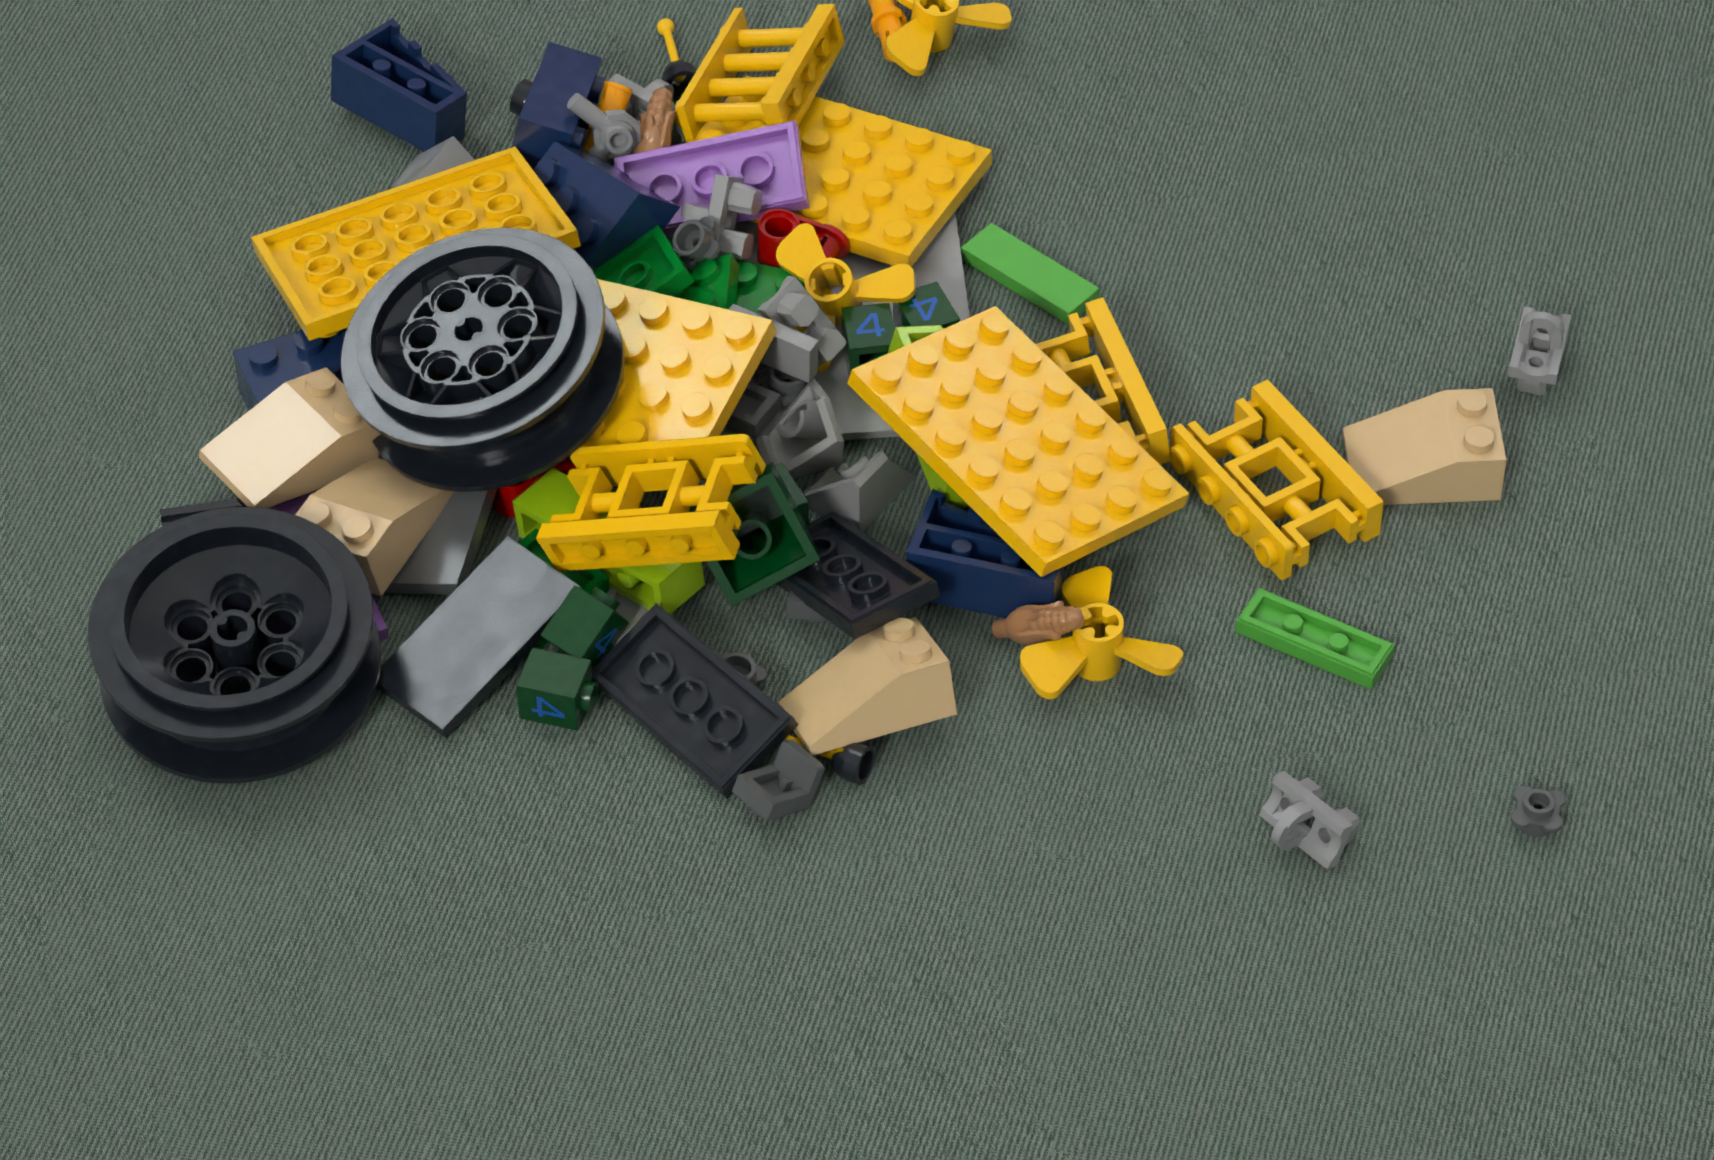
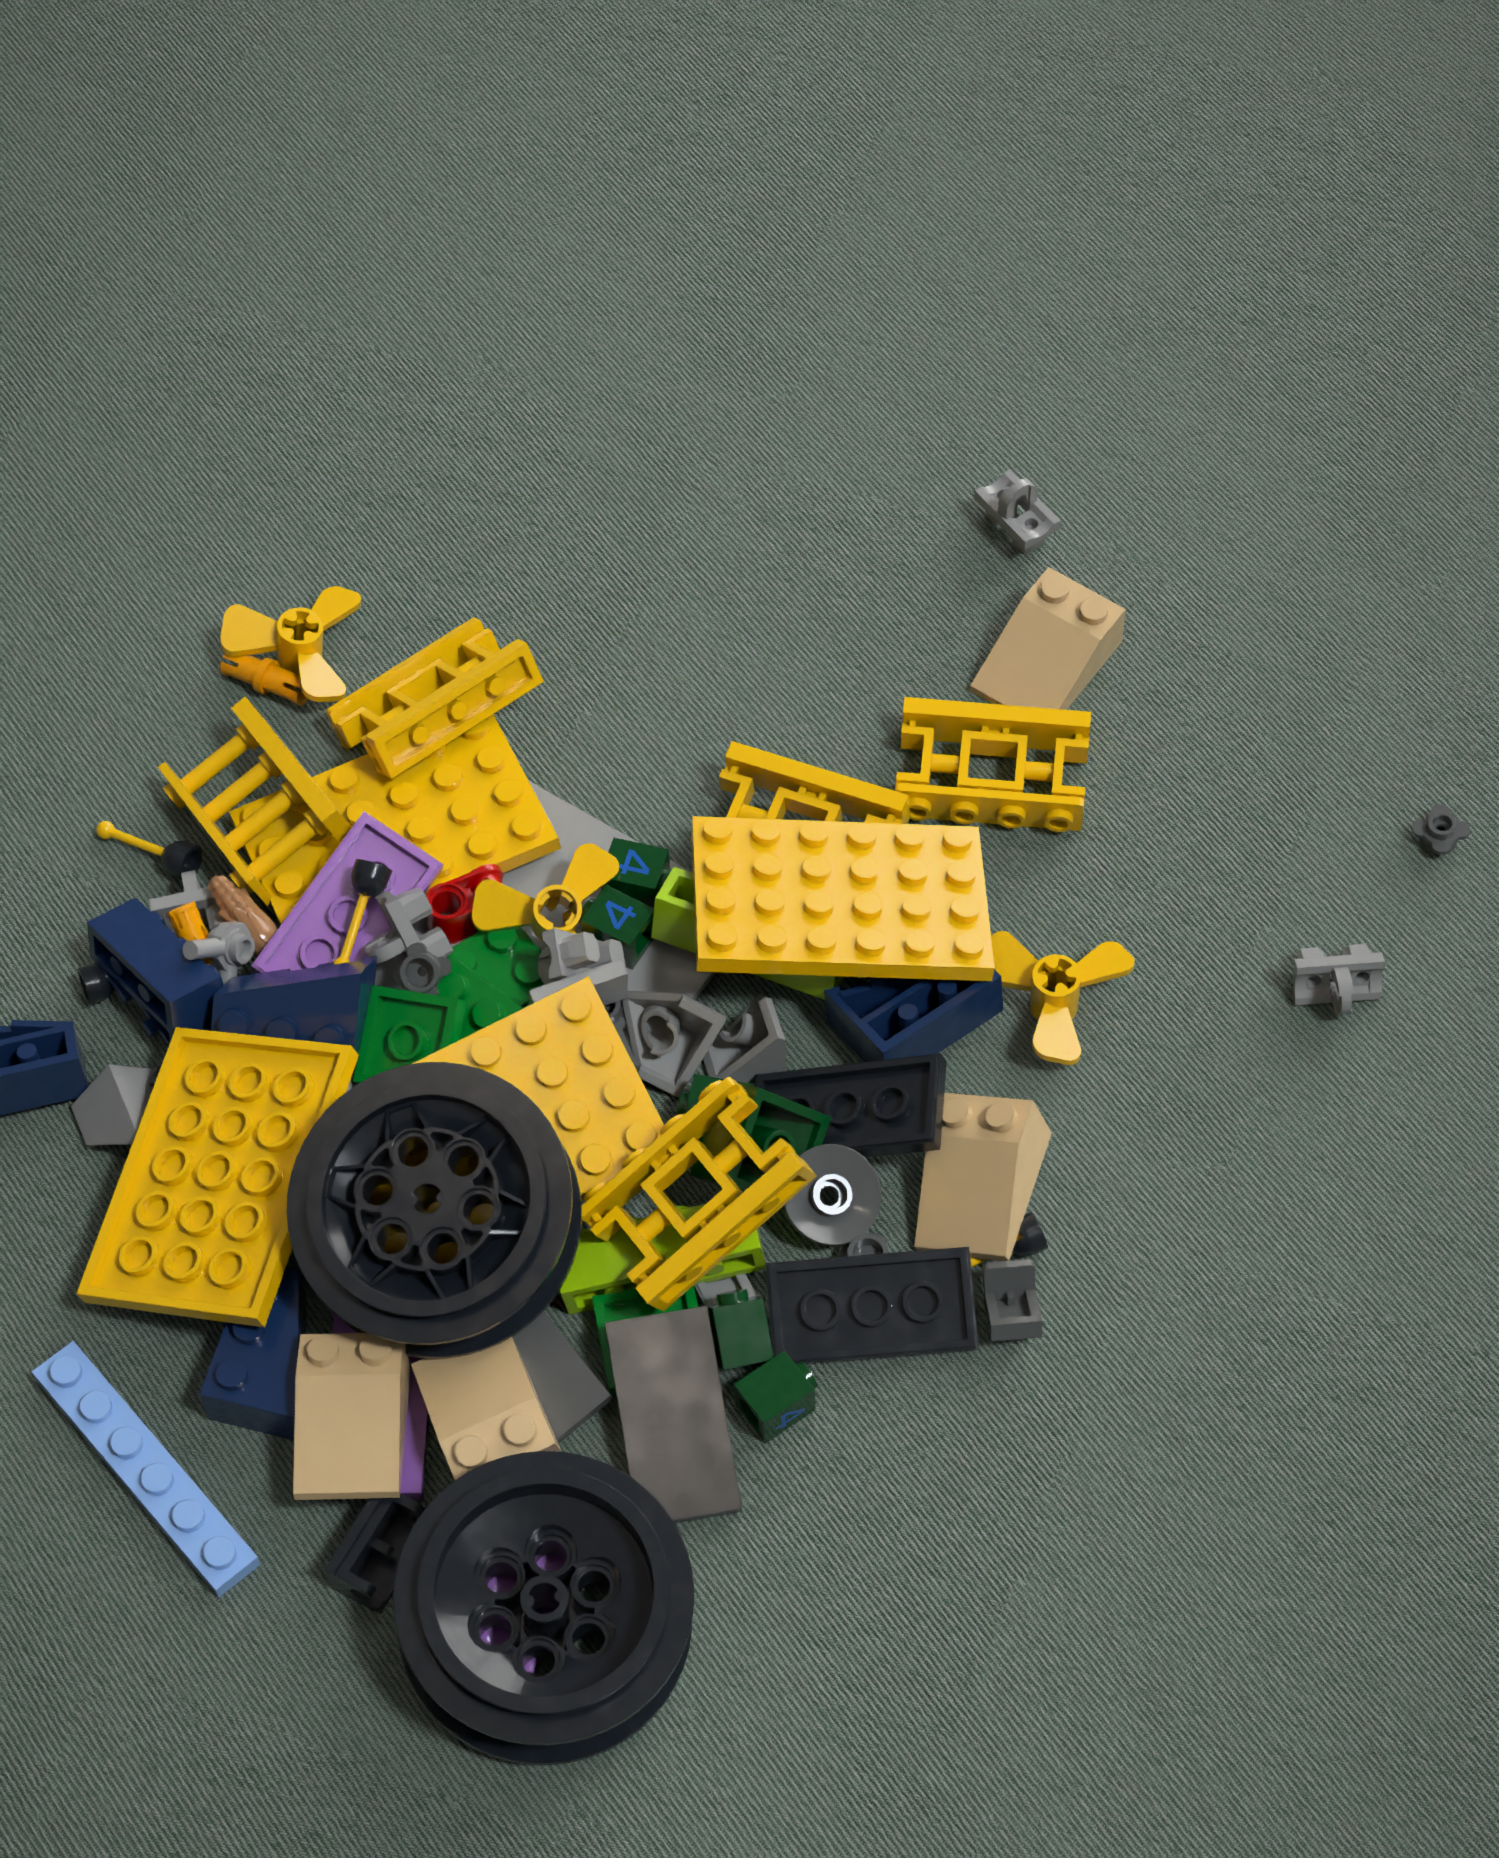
camera: 50 degrees left, 10 degrees up
(164, 380) = (146, 1469): none -> light blue plate
(737, 161) = (368, 881): none -> black hinge
(756, 585) = (855, 1193): none -> dark grey dish
(960, 112) = (434, 696): none -> yellow fence
(1029, 272) = (626, 771): bright green tile -> none
(1038, 623) = (1014, 1015): medium nougat piece -> none
(1315, 638) = (1158, 849): bright green tile -> none

